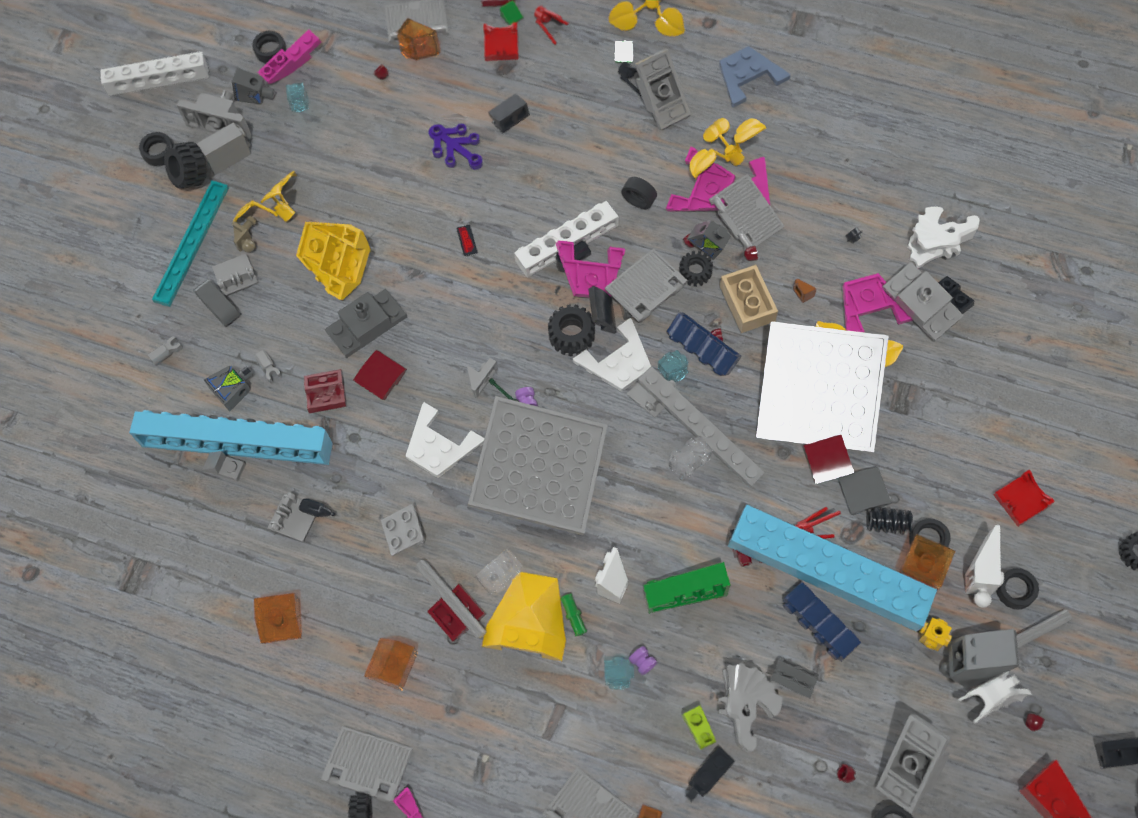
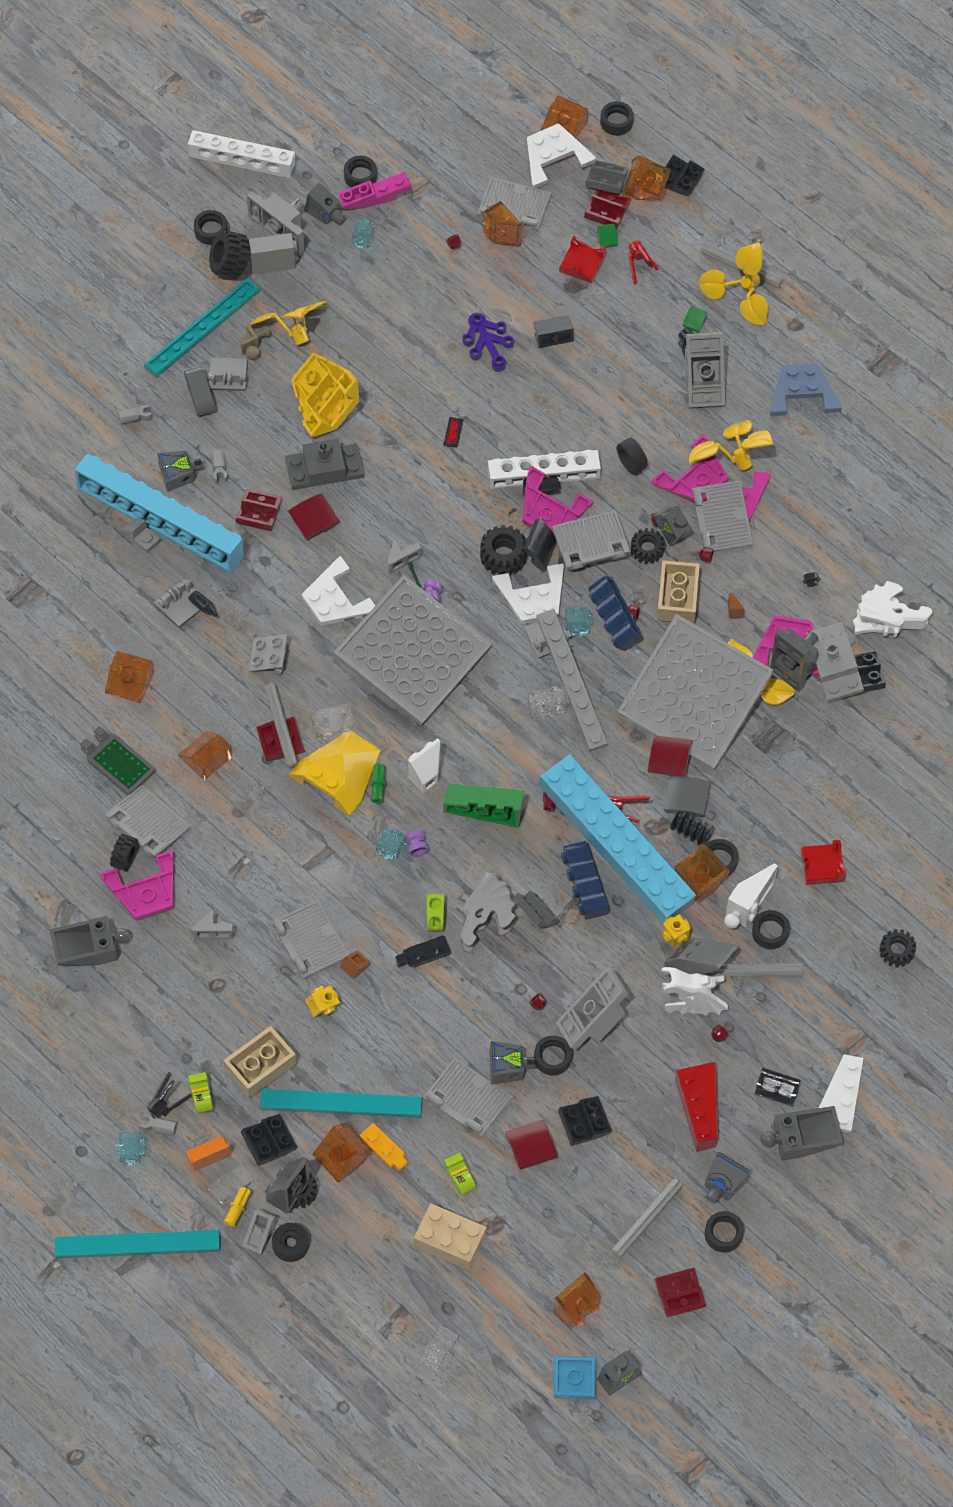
camera: 20 degrees right, 5 degrees down
(308, 713) = (117, 761): none -> tile
(892, 313) = (794, 657): none -> dark grey brick

